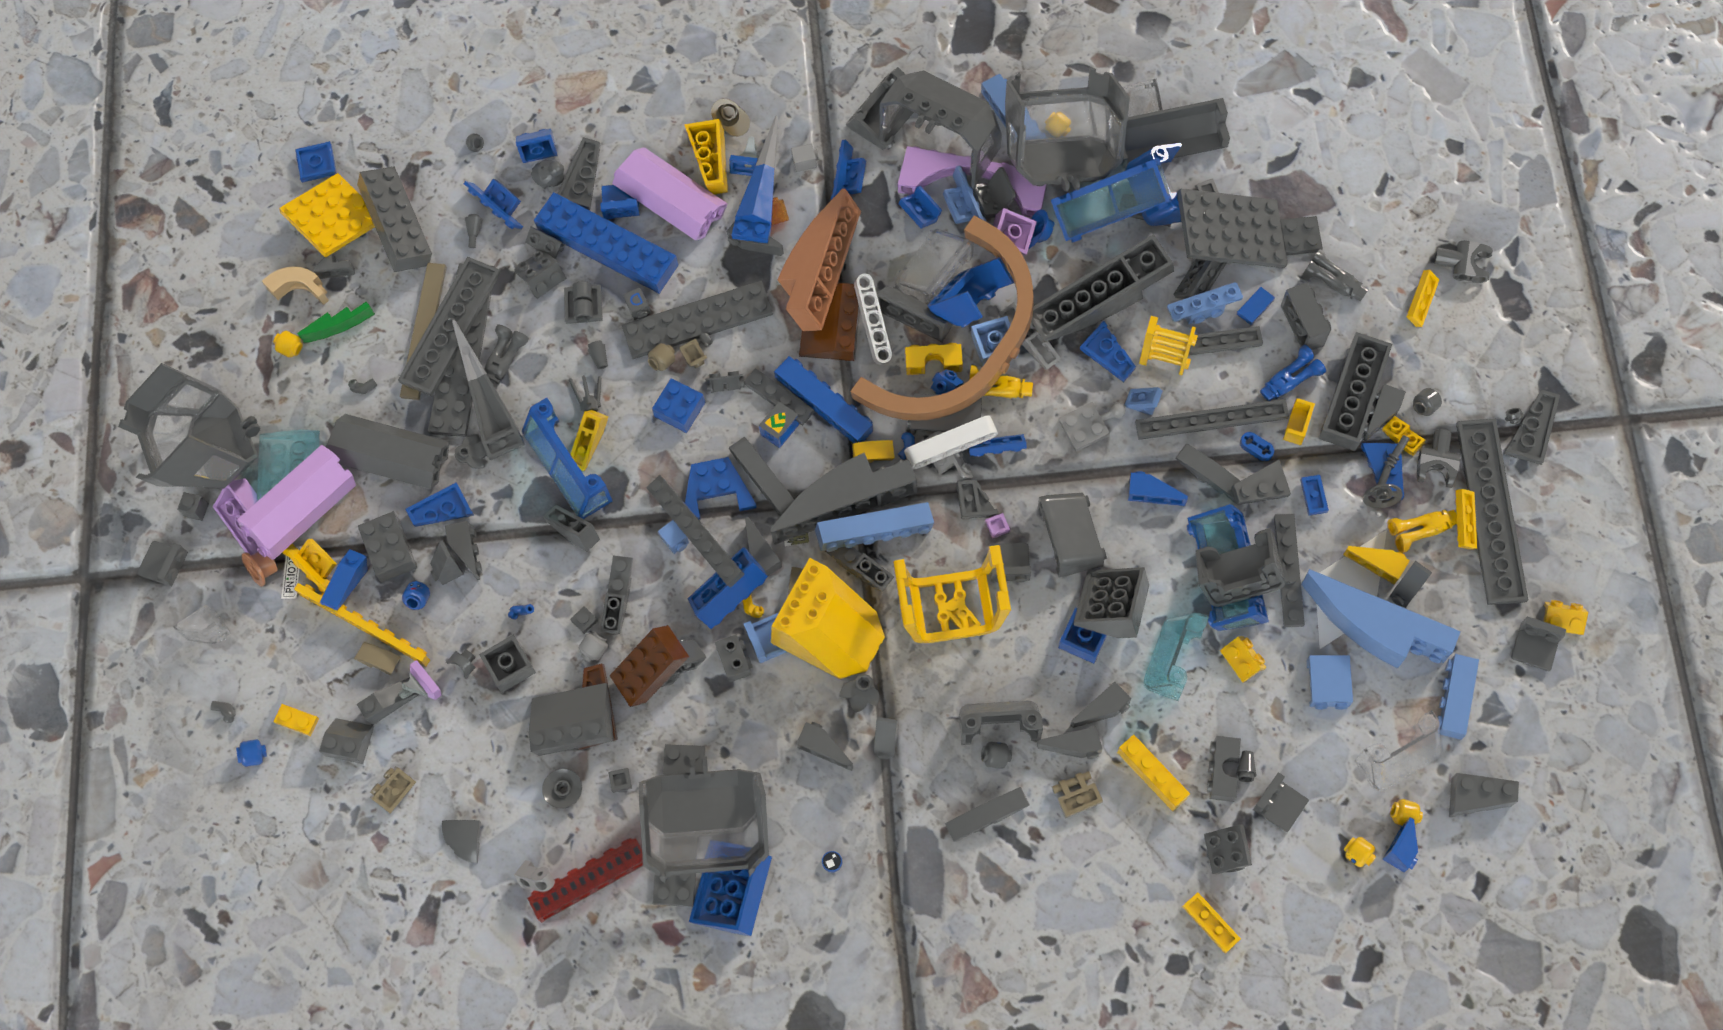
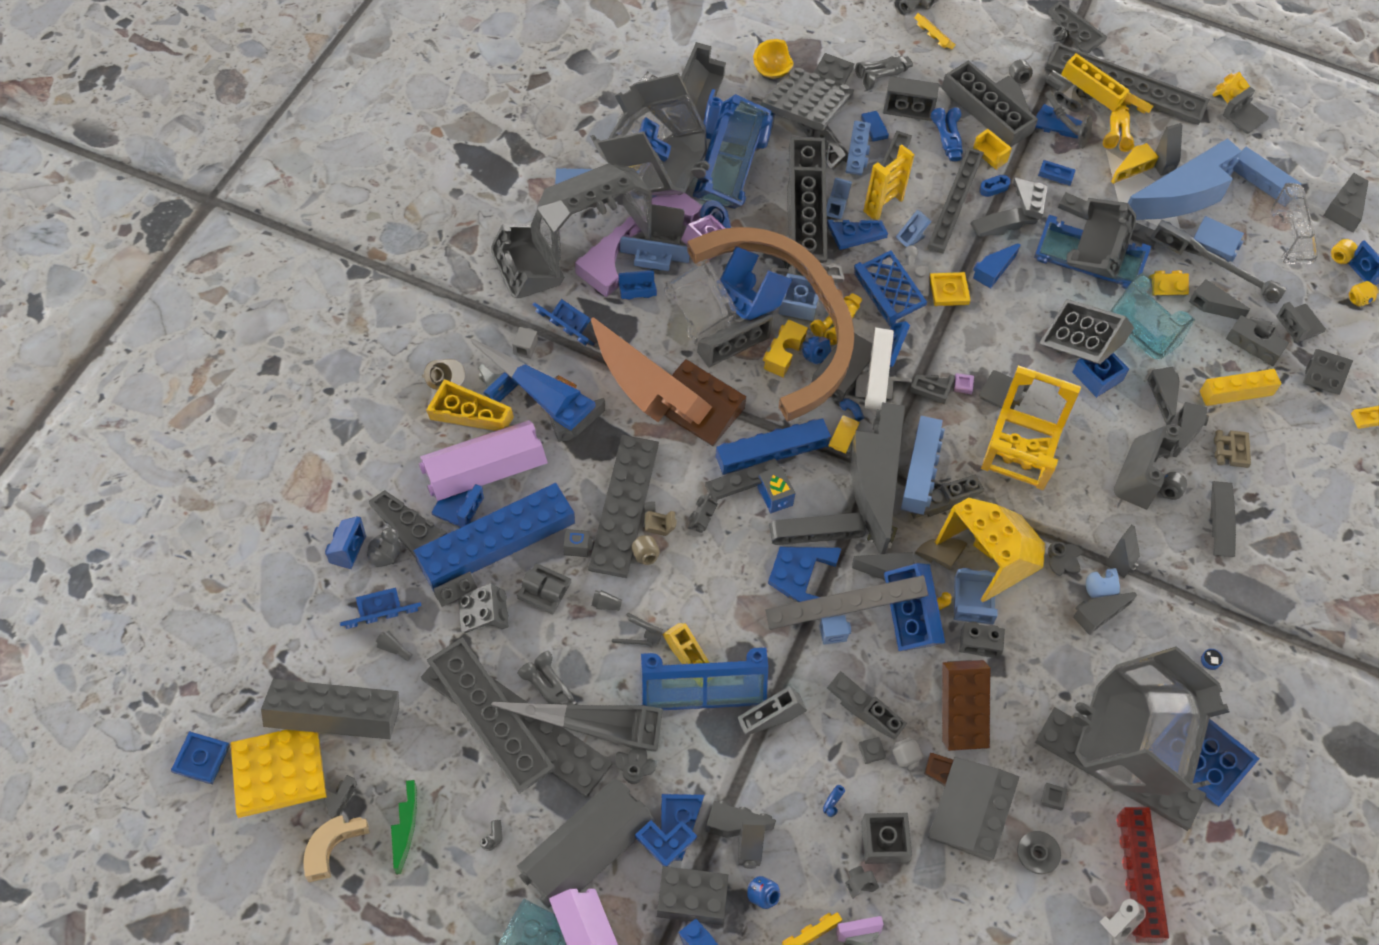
camera: 70 degrees left, 10 degrees down
(287, 344) = (395, 887): yellow head -> none
(411, 504) = (665, 847): none -> blue plate
(427, 308) = (462, 742): dark tan tile -> none
(474, 142) = (297, 598): dark grey plate -> none
(678, 405) = (705, 559): blue brick -> none
(845, 736) = (1100, 587): none -> light blue helmet
(875, 310) = (725, 366): white beam -> none
(1045, 405) = (875, 291): none -> blue fence
(1071, 532) = (1003, 332): dark grey windscreen -> none
(1072, 127) = (651, 130): none -> blue plate
(1096, 463) = (949, 289): none -> yellow plate
(1131, 319) = (839, 198): none -> medium blue brick
(1248, 707) = (1216, 301): none -> dark grey slope
(1265, 174) = (773, 59): none -> yellow cylinder
(1297, 642) = (1180, 241): none -> dark grey bar
(1397, 428) = (1037, 100): yellow slope -> none
(1448, 473) = (1095, 82): none -> yellow brick

